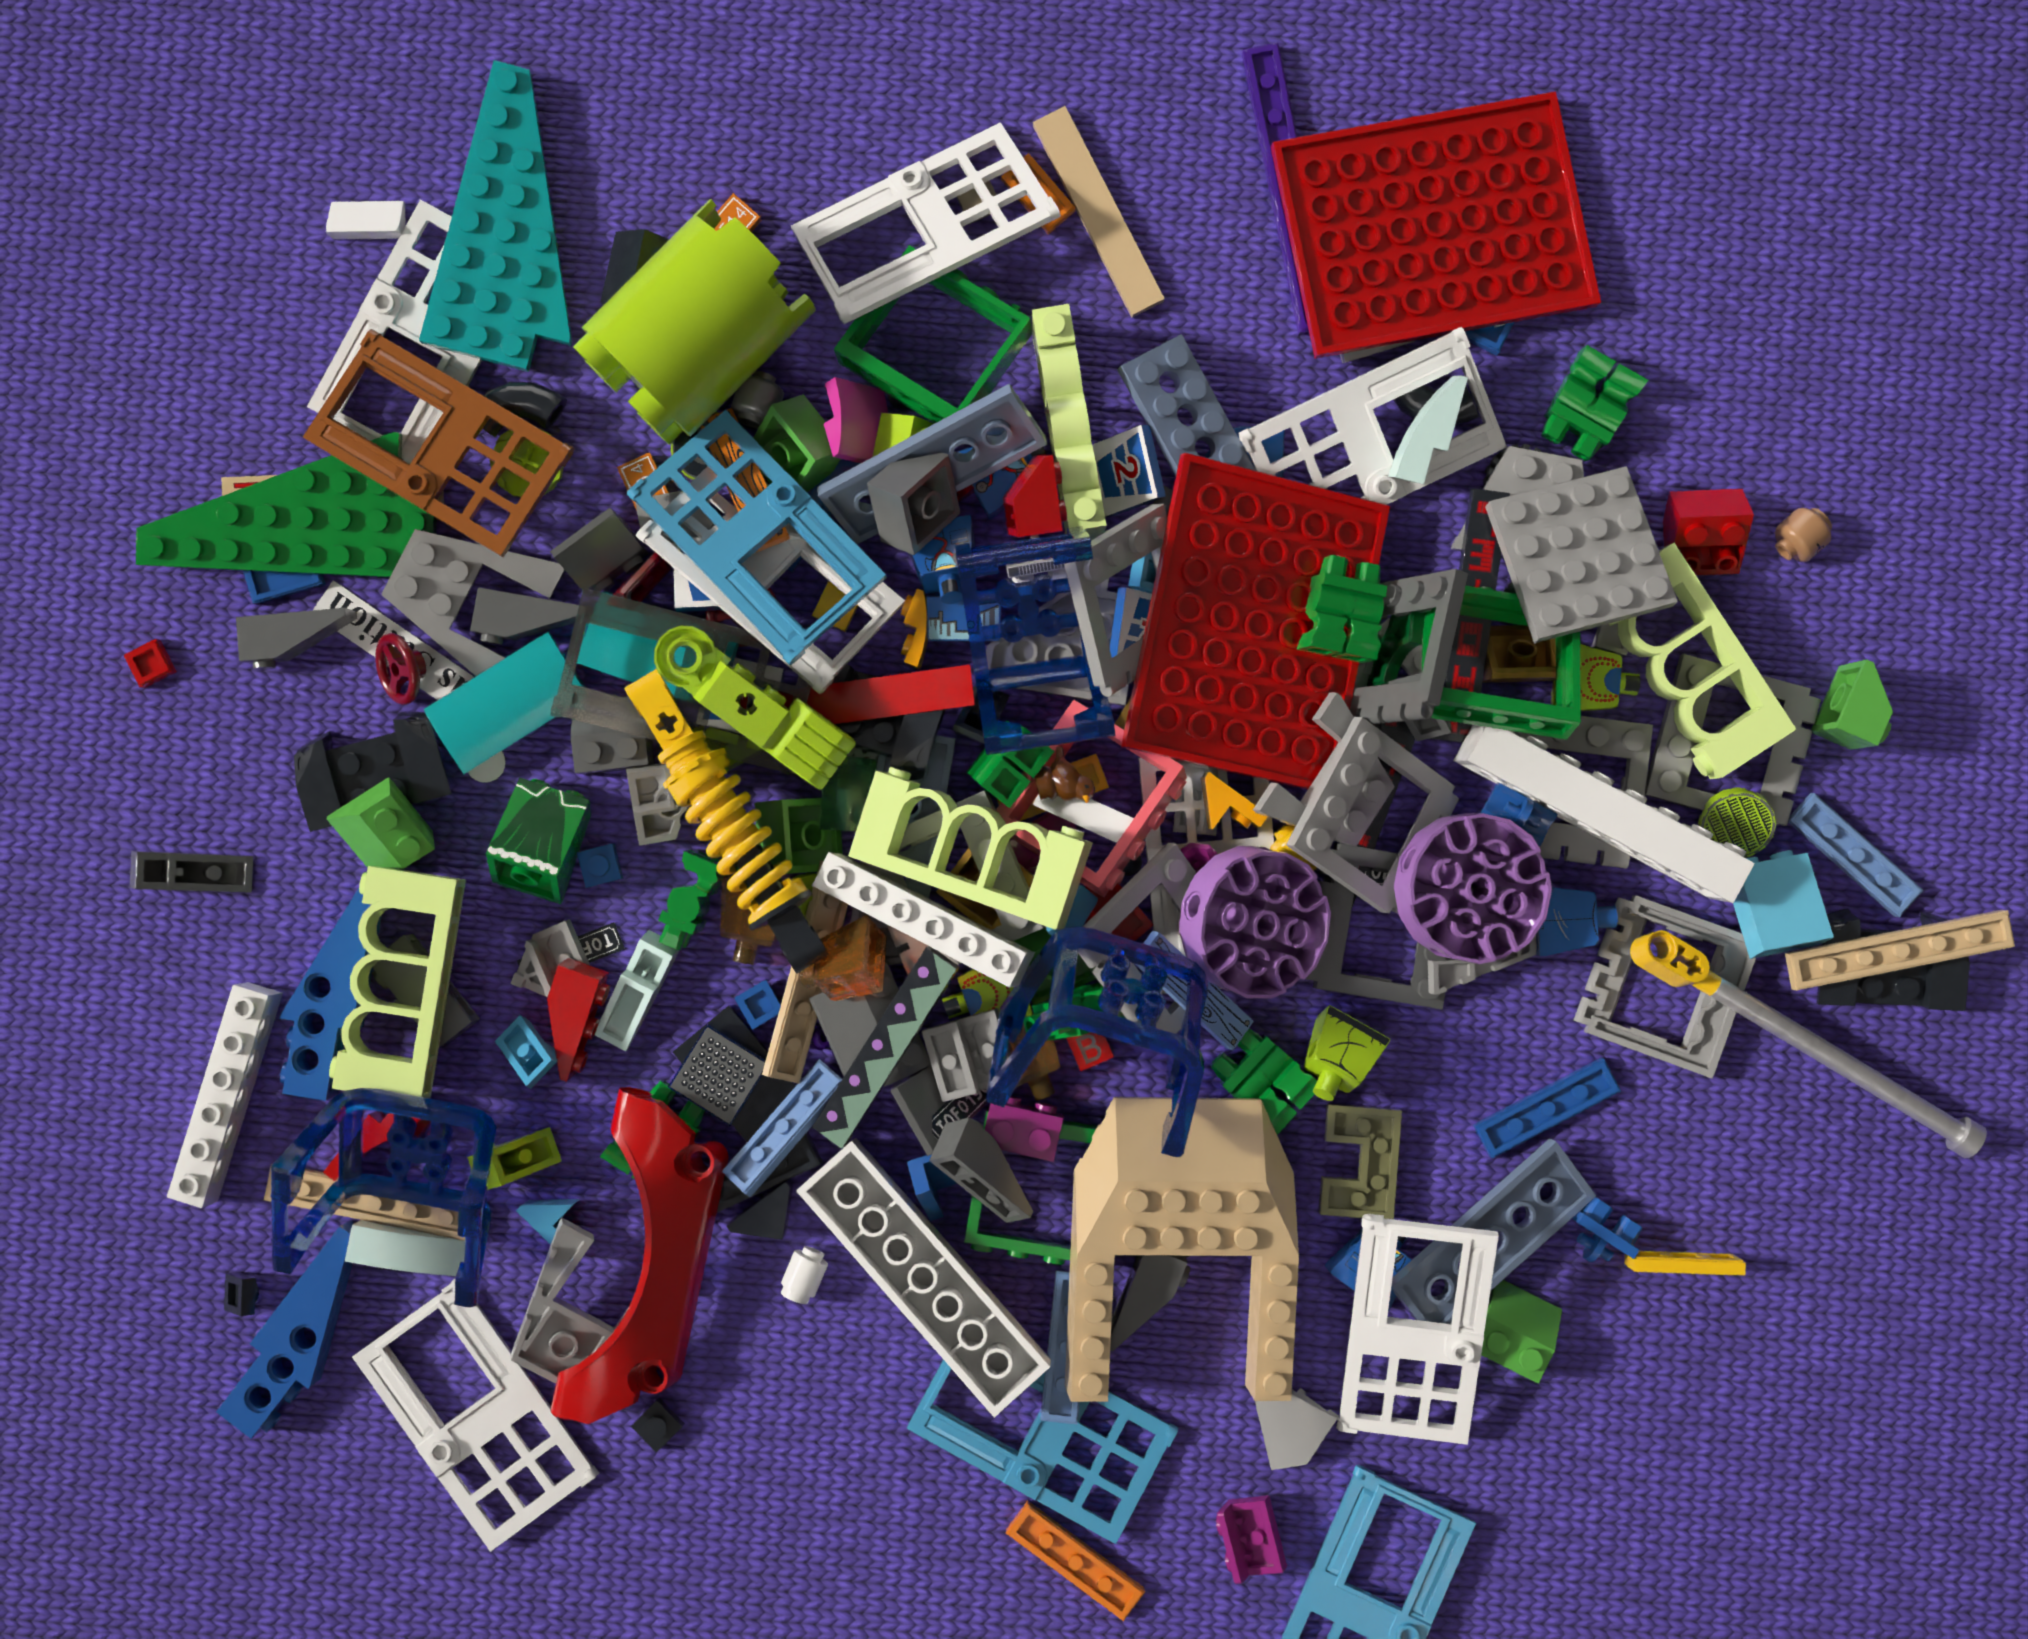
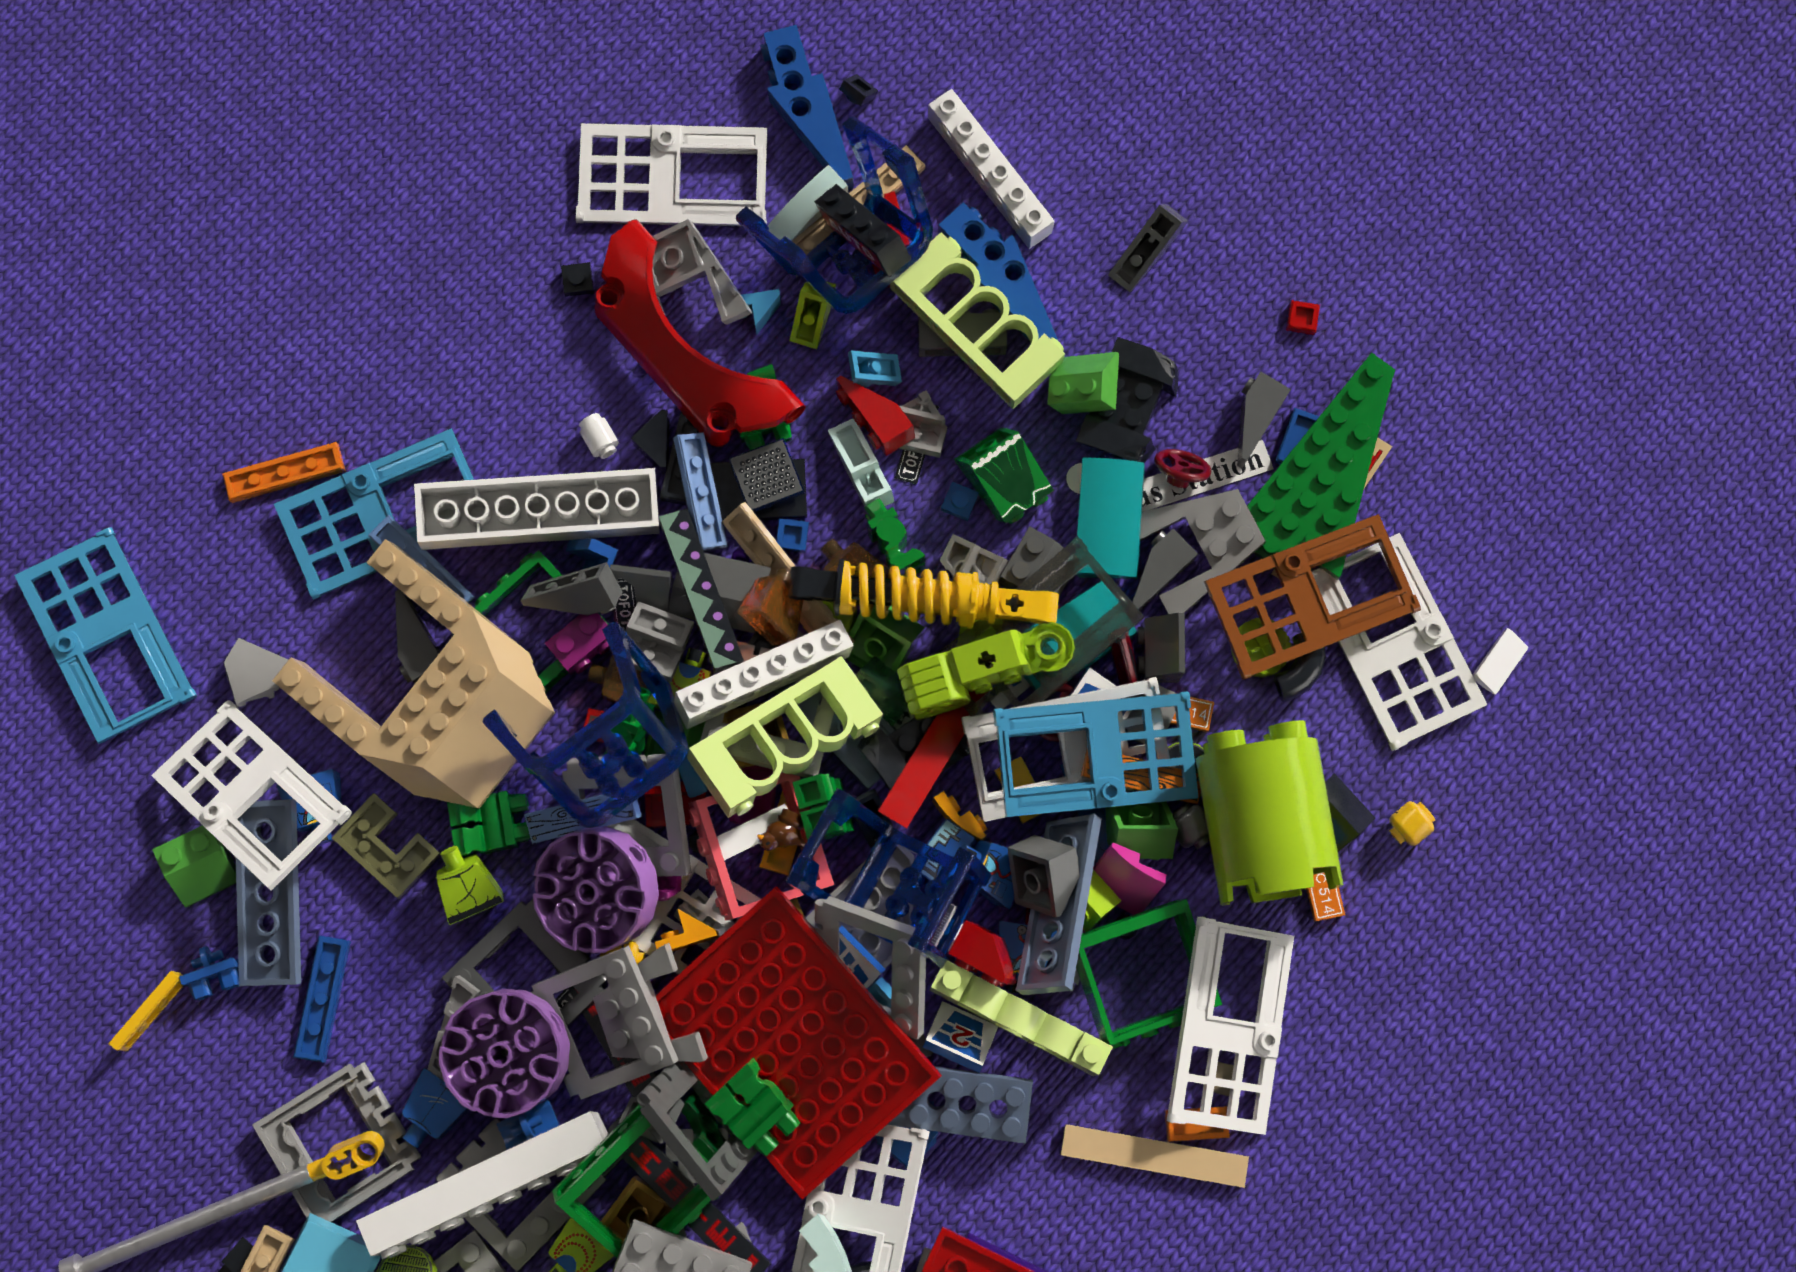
camera: 120 degrees right, 10 degrees down
(389, 1169) = (863, 230): none -> black brick
(501, 254) = (1410, 729): teal wing -> none
(595, 190) = (1411, 823): none -> yellow head
(1250, 1538) = (207, 591): magenta bracket -> none

